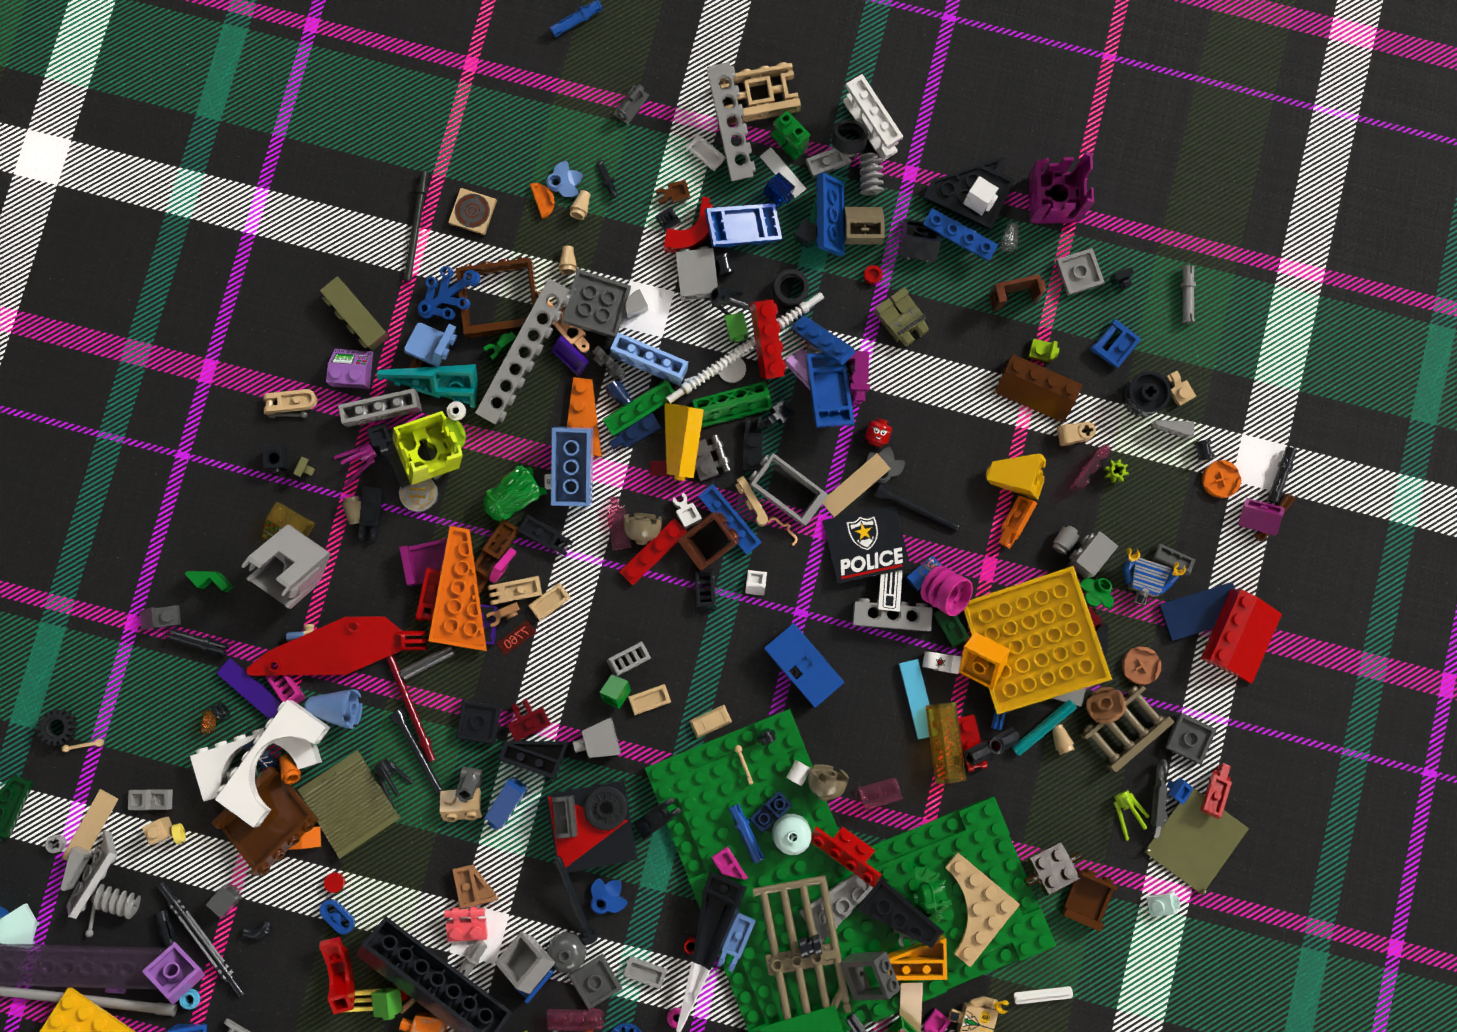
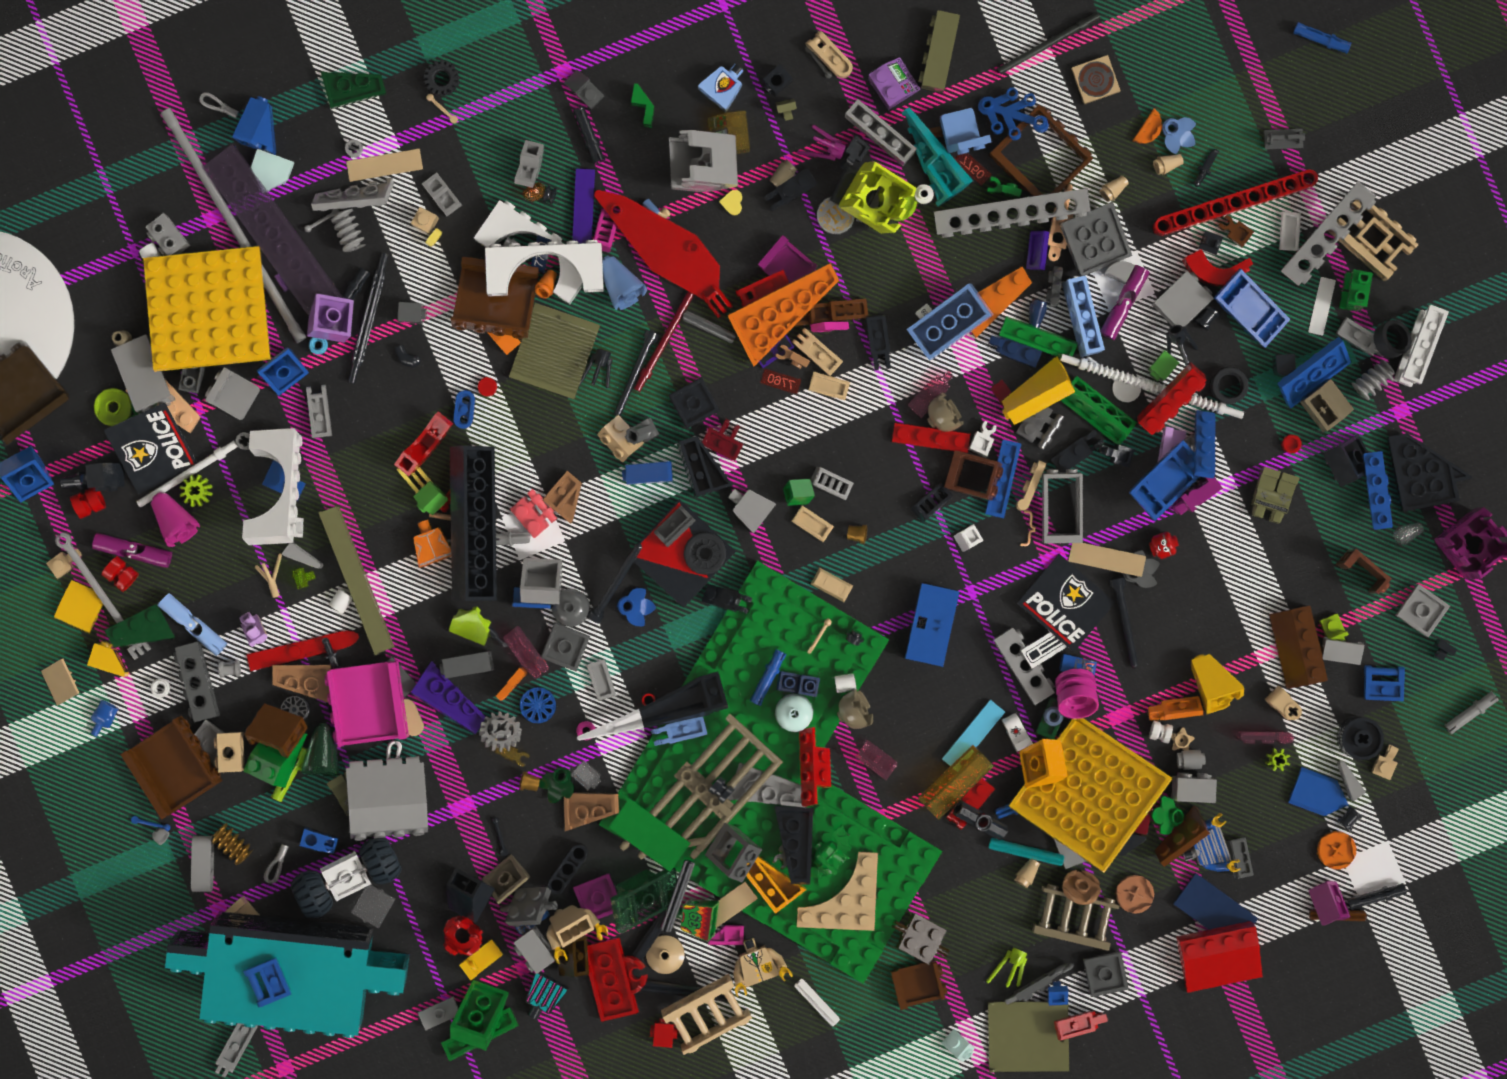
camera: 55 degrees right, 5 degrees up
(75, 865) = (349, 178): light grey slope -> none
(181, 707) = (530, 163): none -> light grey brick
(245, 505) = (722, 86): none -> light blue torso
(343, 568) = (732, 201): none -> light yellow tile
(466, 357) = (973, 168): none -> clear red sticker
(512, 494) = (892, 291): green hair -> none
(653, 168) = (1244, 202): none -> red beam
(667, 328) = (1119, 312): none -> magenta piece
(685, 669) = (857, 533): none -> pearl gold piece
(728, 864) = (733, 681): dark pink tile -> none
(779, 190) = (1303, 315): clear blue brick -> none
(954, 628) = (1057, 721): none -> sand blue plate
(981, 196) = (1422, 484): white brick -> none
(1026, 546) = (1160, 732): none -> white wheel
(1045, 530) = (1186, 740): none -> tan plate
(1067, 356) = (1342, 651): none -> light grey hinge
(1124, 592) = (1182, 837): none -> reddish brown wing
(1164, 460) = (1317, 793): none -> blue tile

